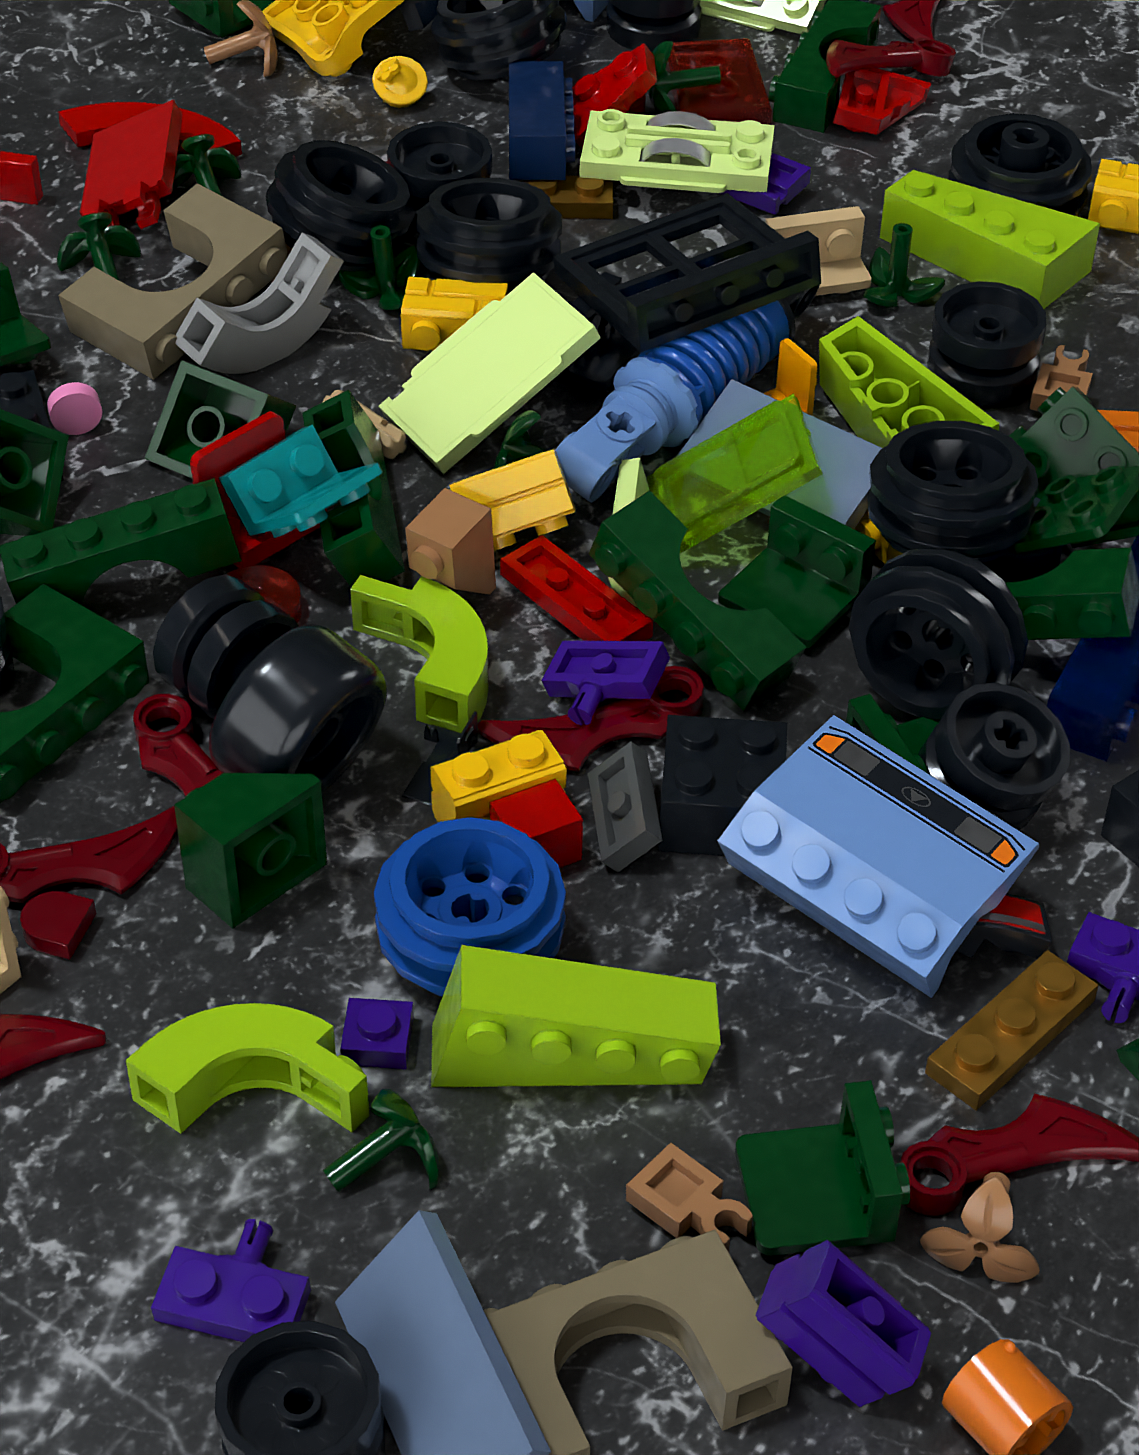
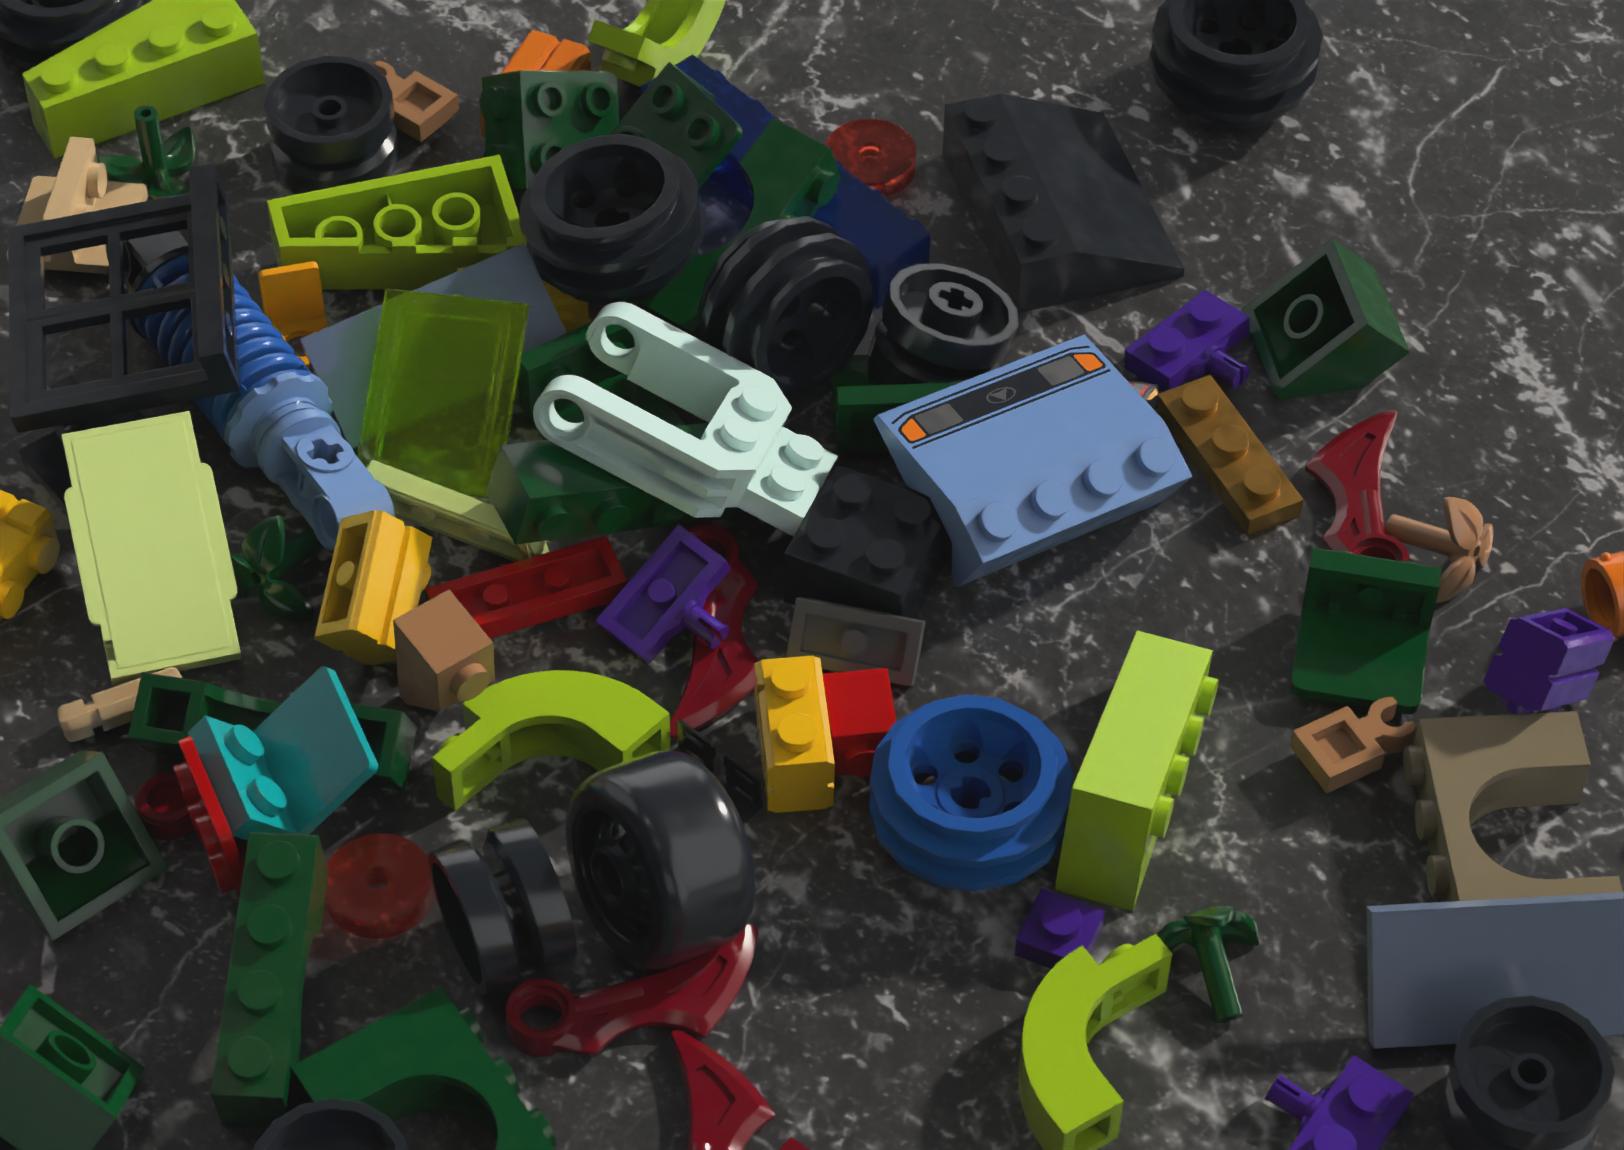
camera: 70 degrees left, 5 degrees up
(250, 839) = (803, 963): dark green slope -> none
(748, 655) = (743, 453): none -> light aqua plate

